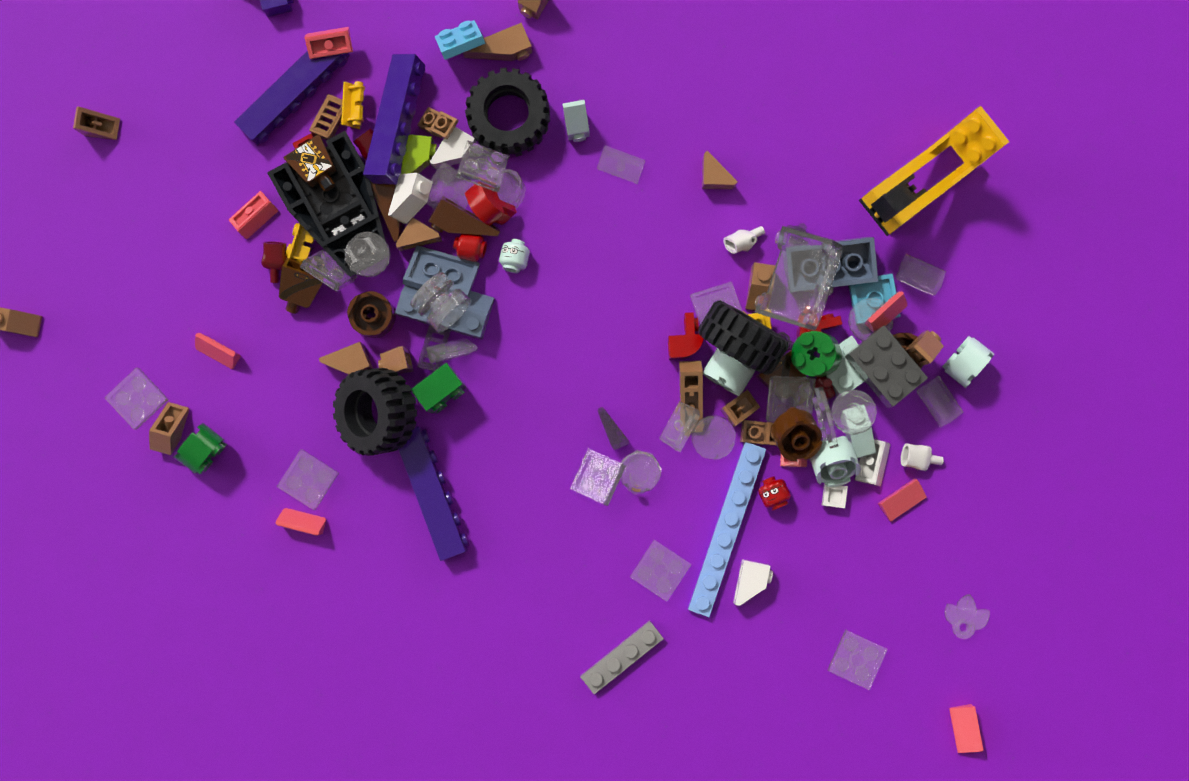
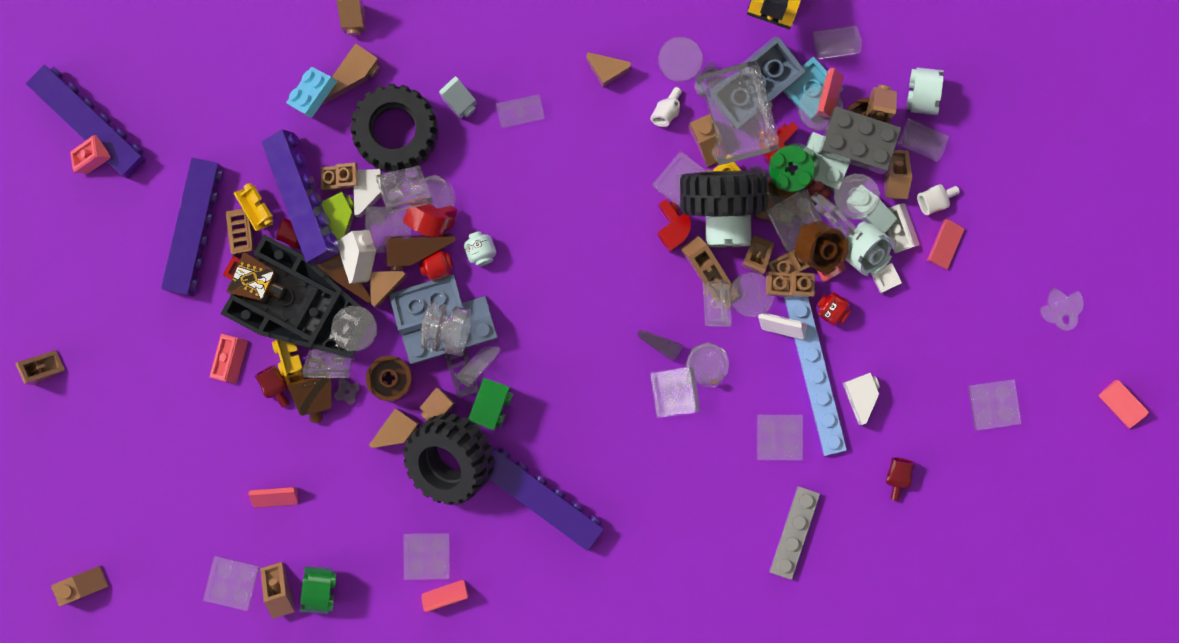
camera: 40 degrees left, 0 degrees up
(328, 42) = (199, 167): coral slope -> none
(331, 309) = (341, 395): none -> clear purple plate
(723, 480) = (783, 325): none -> white slope
(739, 667) = (899, 476): none -> dark red piece
(750, 449) = (790, 285): none -> medium nougat slope
(780, 205) = (680, 59): none -> clear tile
(899, 417) = (898, 176): none -> medium nougat slope

